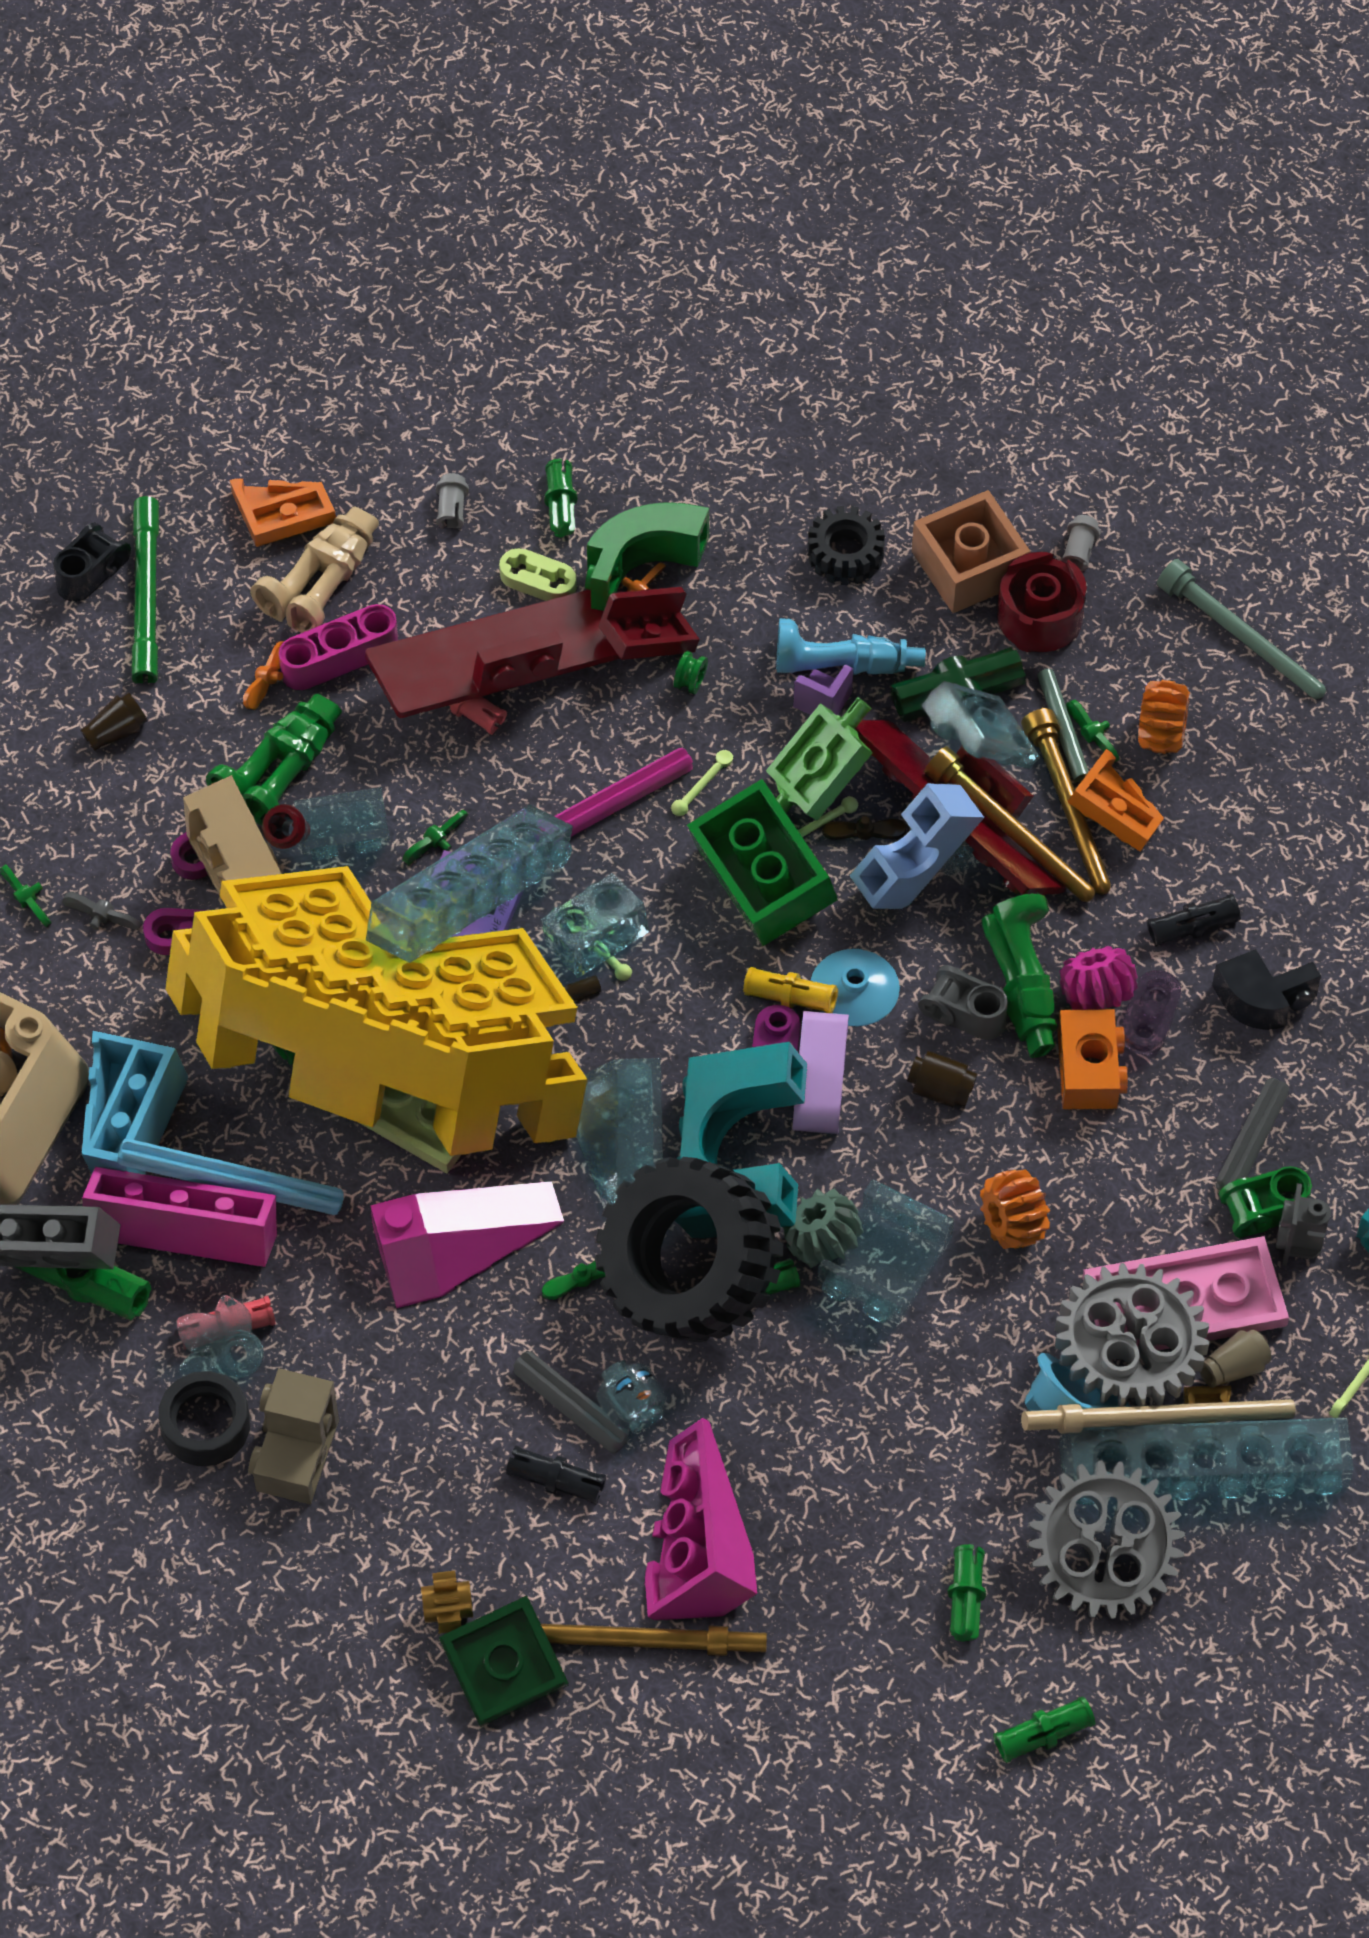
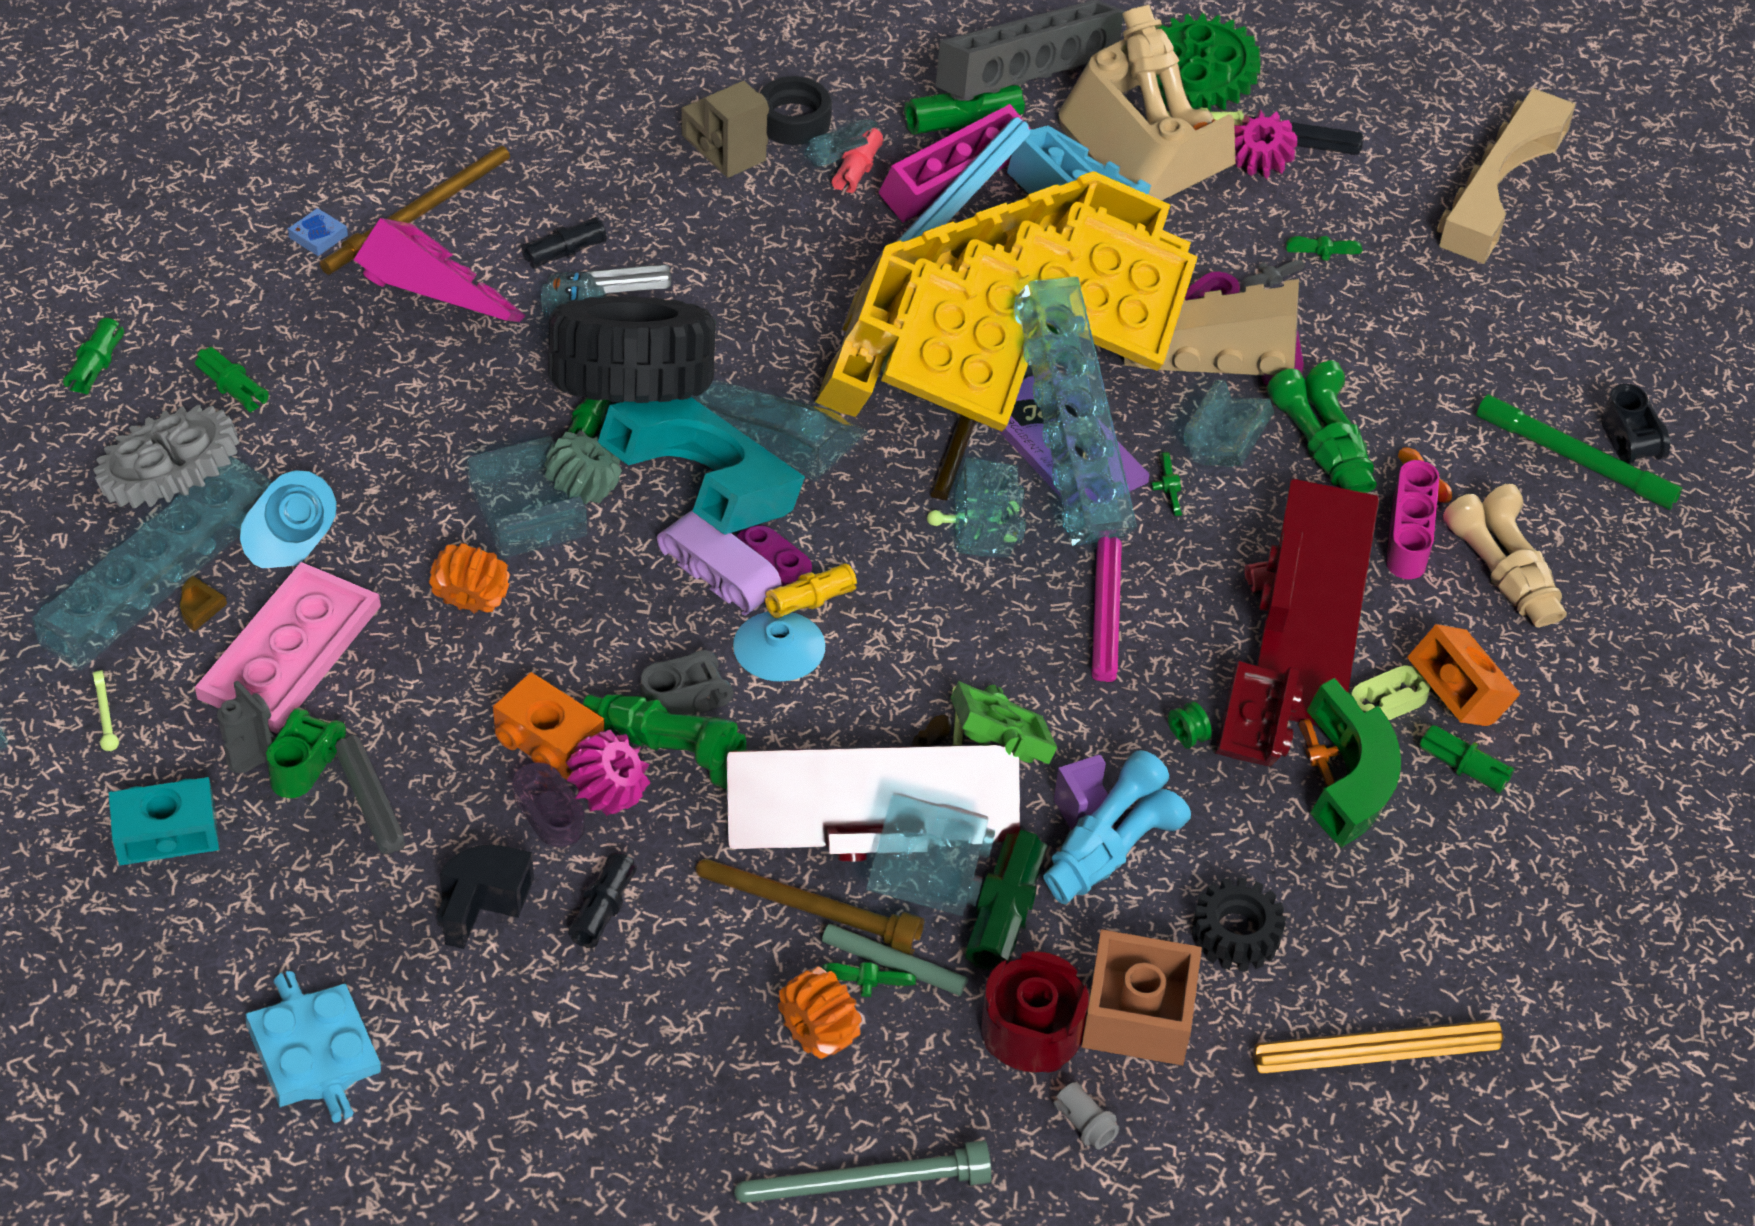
camera: 125 degrees right, 10 degrees down
(115, 721) = (1449, 366): dark brown cone -> none
(277, 824) = (1238, 367): dark red cone -> none
(282, 508) = (1603, 571): orange wing -> none
(446, 1601) = (532, 137): pearl gold gear -> none
(449, 1236) = (801, 294): dark pink wedge -> none
(451, 492) = (1532, 689): light grey pin -> none
(490, 527) = (1463, 675): none -> orange brick
(503, 1661) = (463, 142): dark green plate -> none
(723, 759) = (1082, 703): yellowish green hinge -> none
(726, 1692) = (317, 232): none -> medium blue tile
(762, 862) = (939, 627): green brick -> none
(867, 425) = (1377, 1046): none -> axle
(939, 824) = (842, 710): light blue arch -> none
(942, 1079) = (633, 627): dark brown brick -> none
(946, 769) = (805, 823): pearl gold piece -> none
(1073, 1418) = (261, 476): tan bar -> none
(1116, 803) = (771, 924): orange wing -> none
(1170, 1324) = (286, 563): light grey gear -> none
(1237, 1358) = (204, 634): dark tan cone -> none

